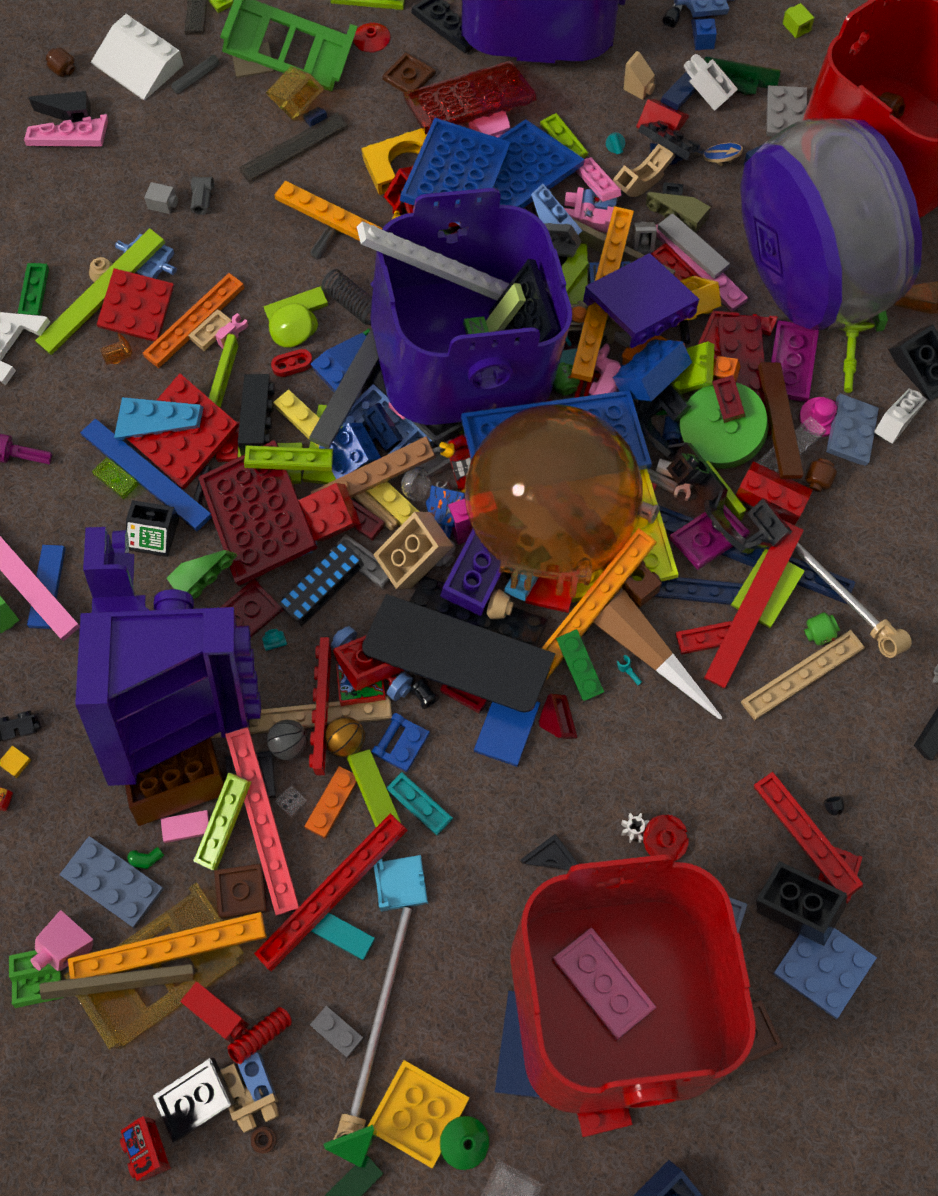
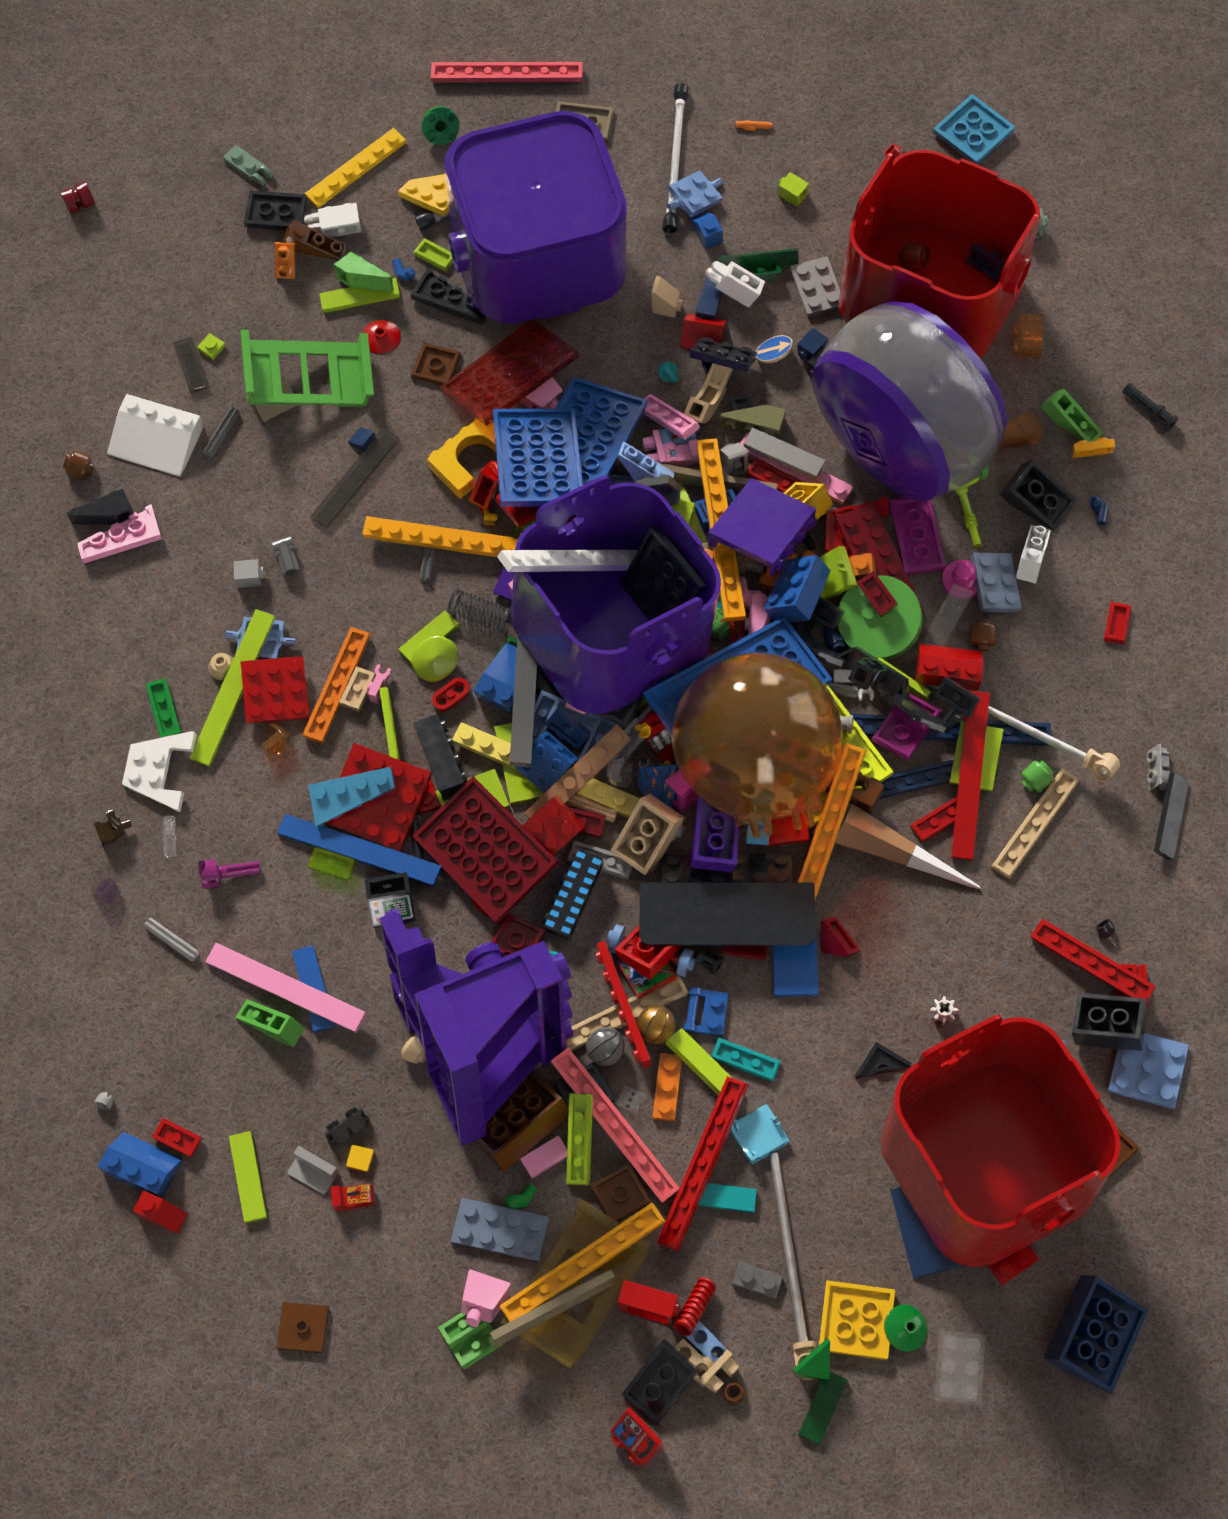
camera: 20 degrees left, 0 degrees up
(198, 573) = (452, 929): bright green slope -> none
(288, 458) = (495, 788): lime tile -> none
(294, 91) = (335, 421): clear yellow slope -> none
(475, 325) = (616, 603): bright green tile -> none
(499, 605) = (746, 856): tan cone -> none
(506, 309) = (641, 580): yellowish green tile -> none
(558, 130) = (612, 379): lime tile -> none
(579, 664) = (838, 884): green plate -> none
(604, 983) = (972, 1149): bright pink tile -> none
(627, 668) = (882, 874): teal hand -> none
(666, 836) = (972, 1007): red tile -> none
(780, 420) = (929, 596): reddish brown tile -> none

